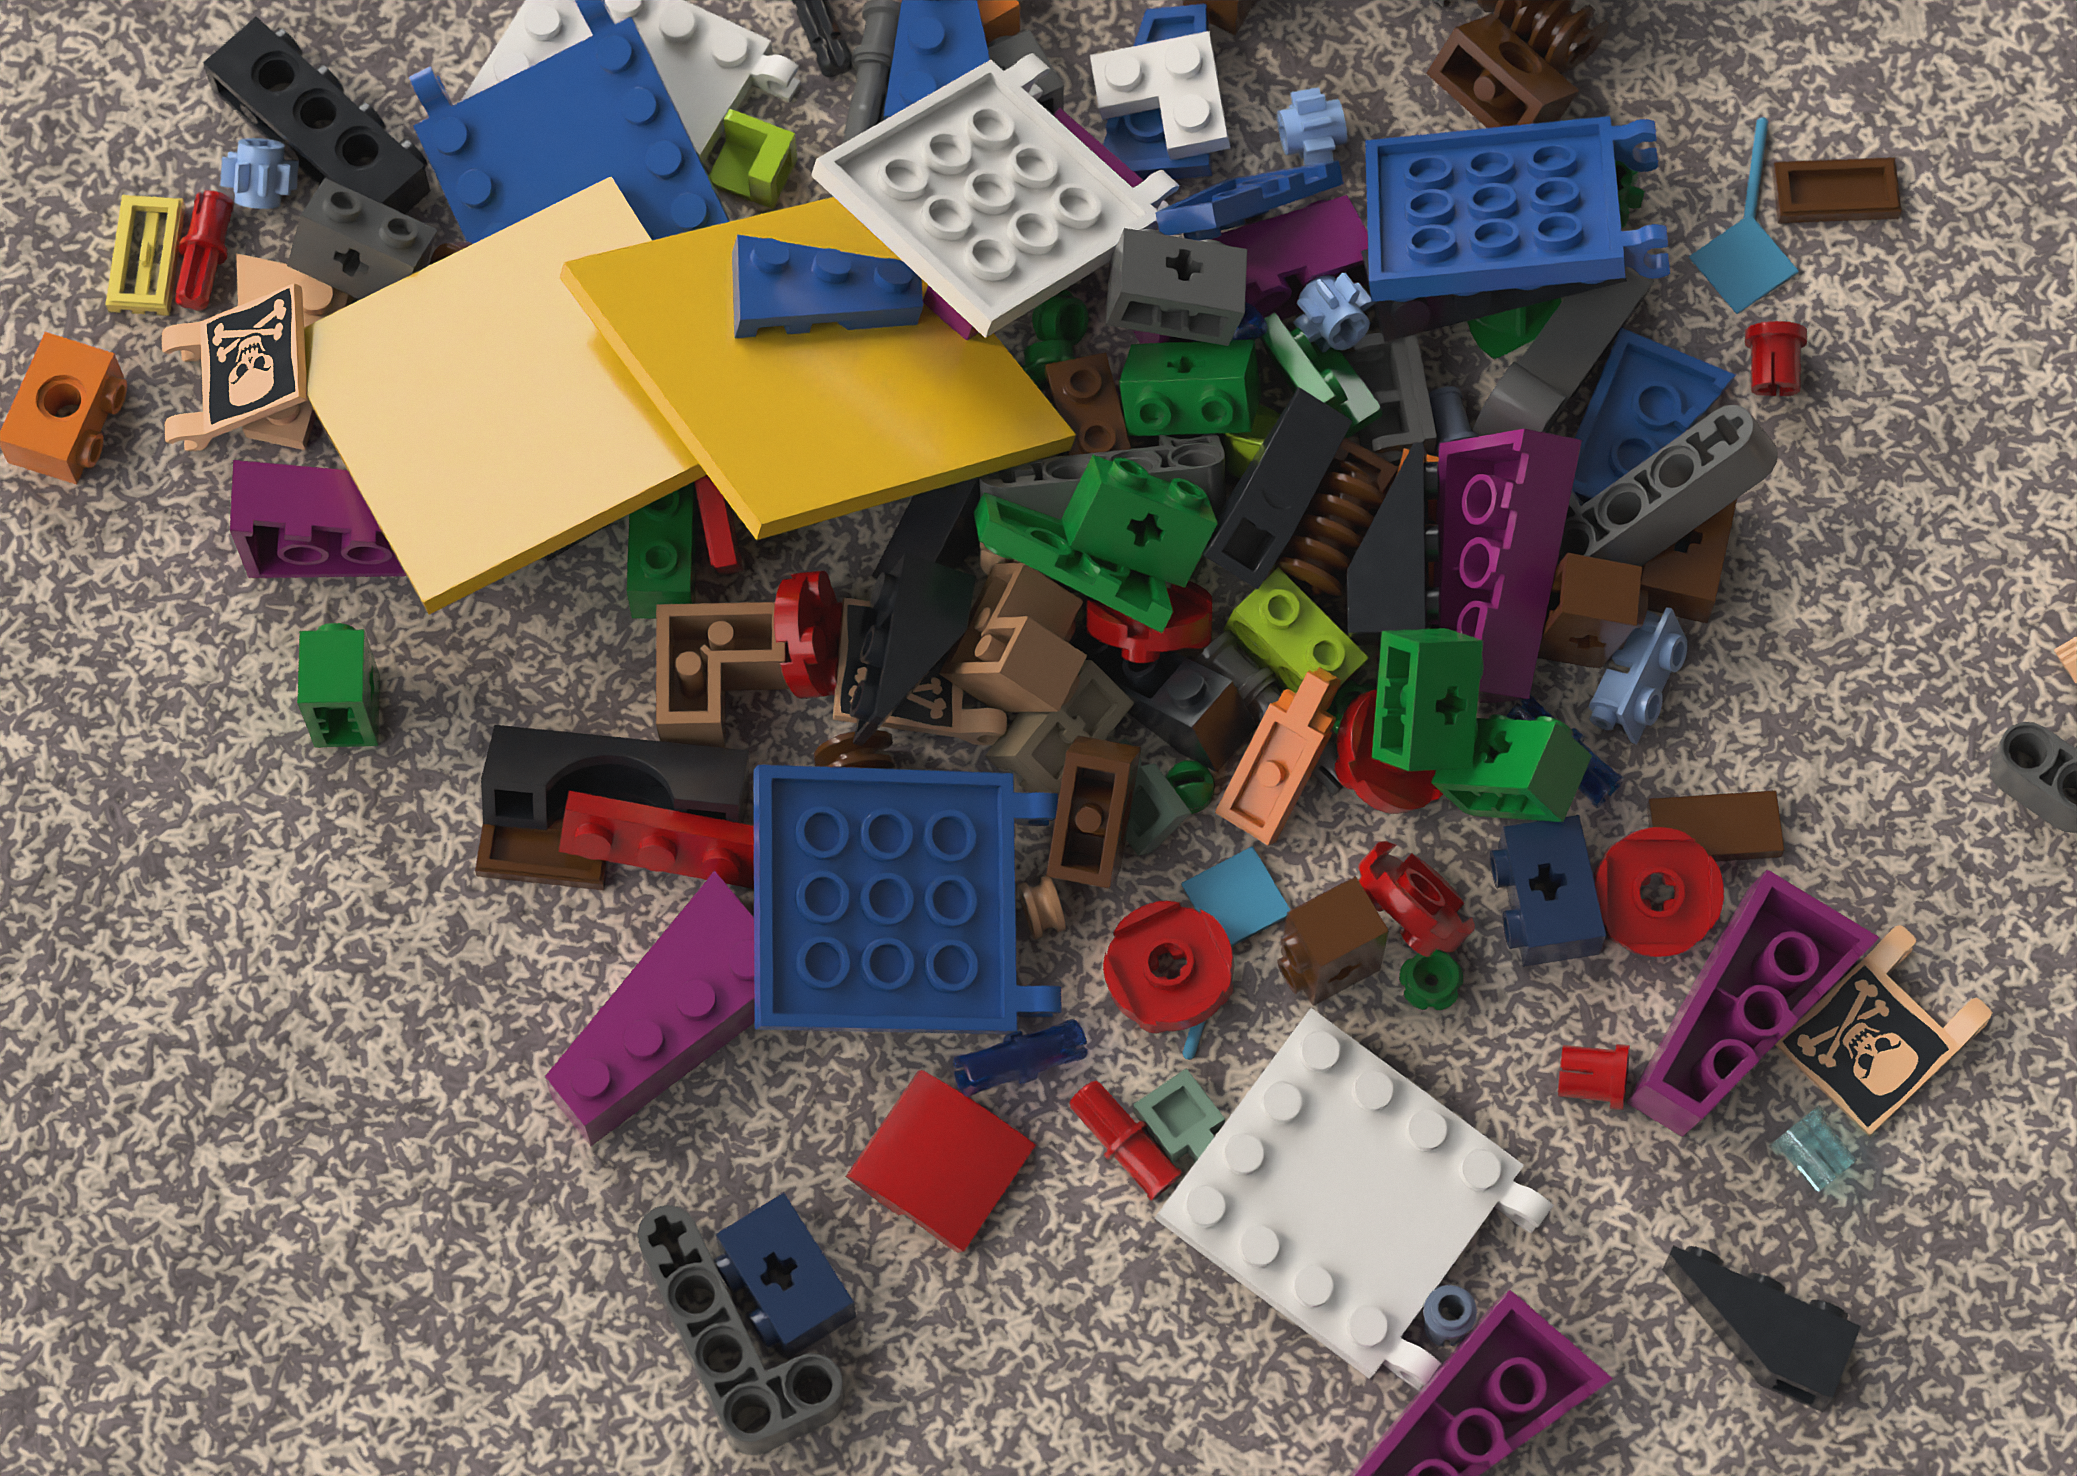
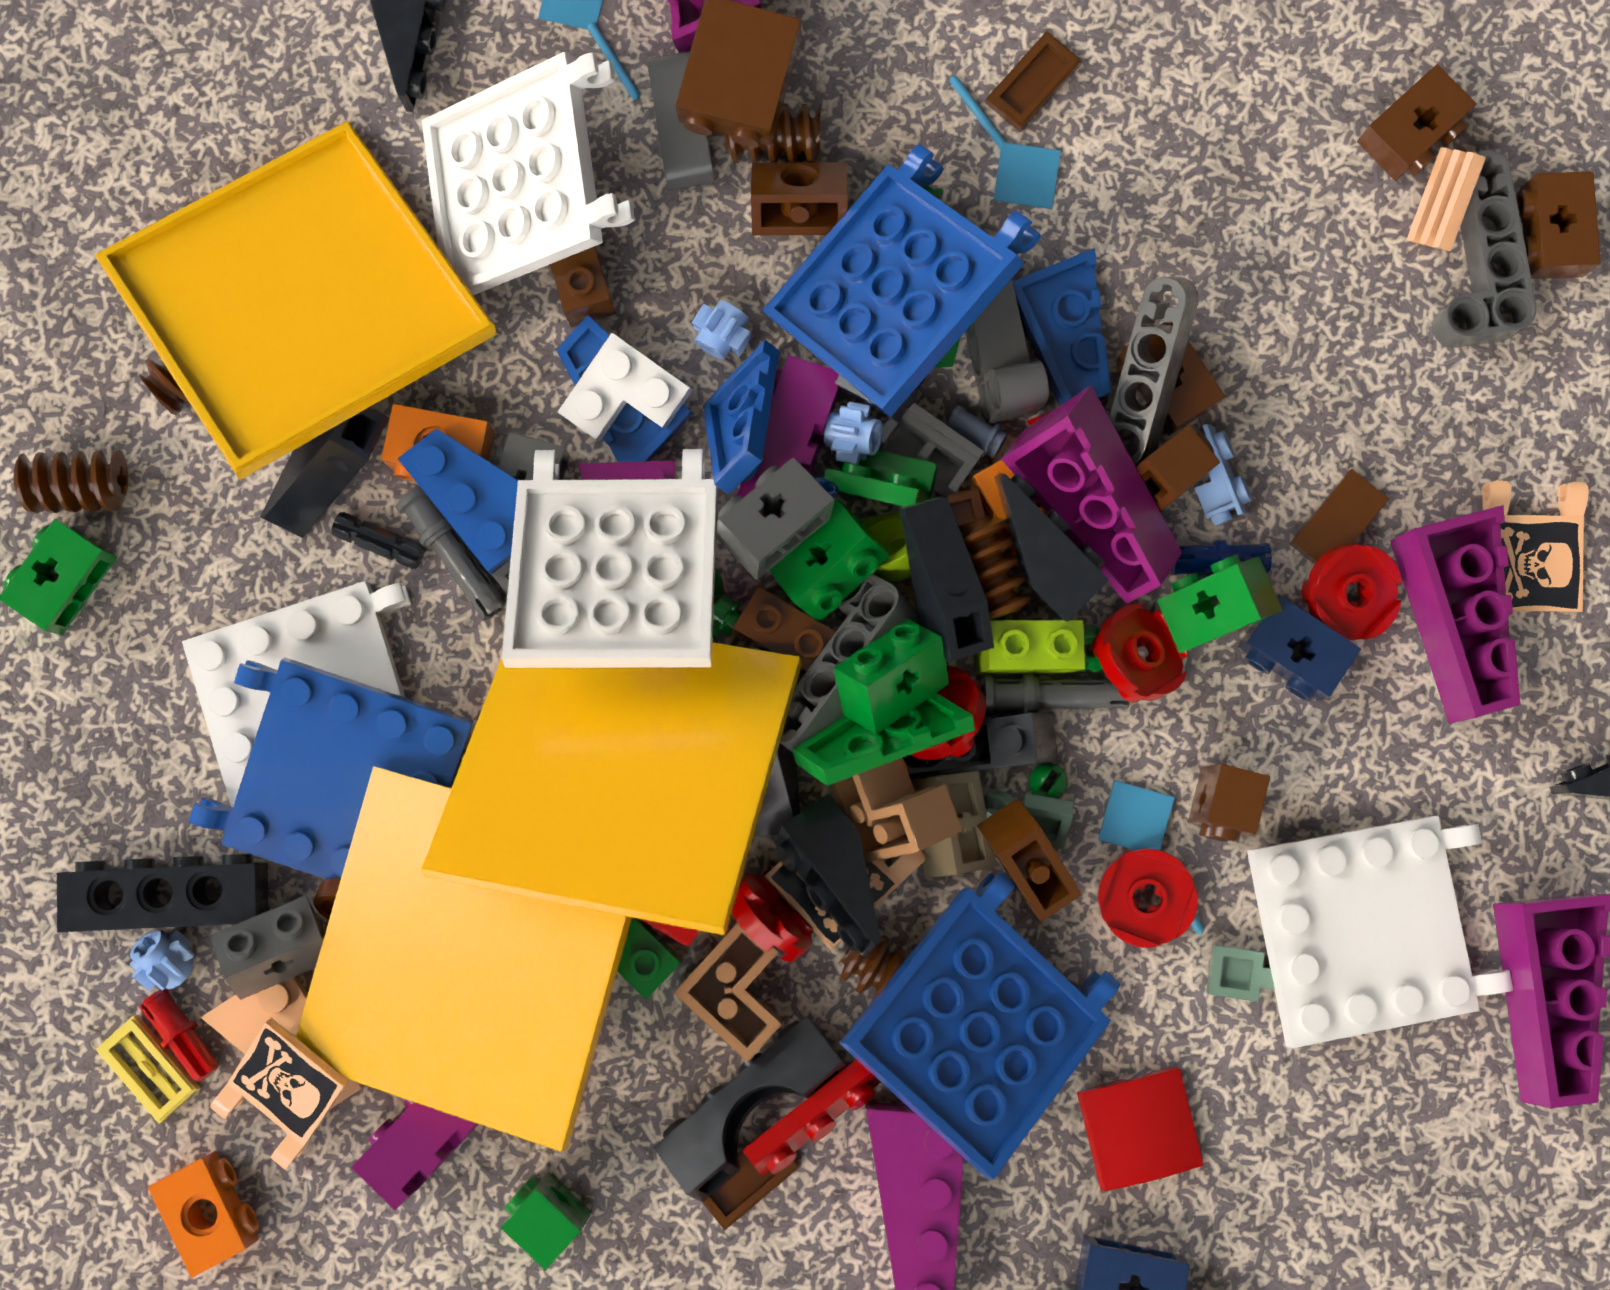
camera: 45 degrees left, 15 degrees up
(754, 159) = (432, 663): lime panel -> none
(811, 285) = (566, 727): blue wing -> none
(1020, 1057) = (1125, 1032): clear blue pin -> none
(1041, 907) = (1046, 934): medium nougat bush -> none
(1124, 1139) = (1222, 1016): red axle -> none
(1281, 758) = (1091, 722): orange hinge -> none
(1415, 899) = (1240, 732): red plate -> none
(1427, 699) = (1150, 618): green brick -> none
(1443, 968) = (1296, 759): green plate -> none
(1459, 1304) = (1492, 935): sand blue pin -> none
(1608, 1078) = (1421, 725): red bush -> none
(1775, 357) = (1105, 216): red bush -> none
(1809, 1136) = (1567, 651): clear light blue bush -> none

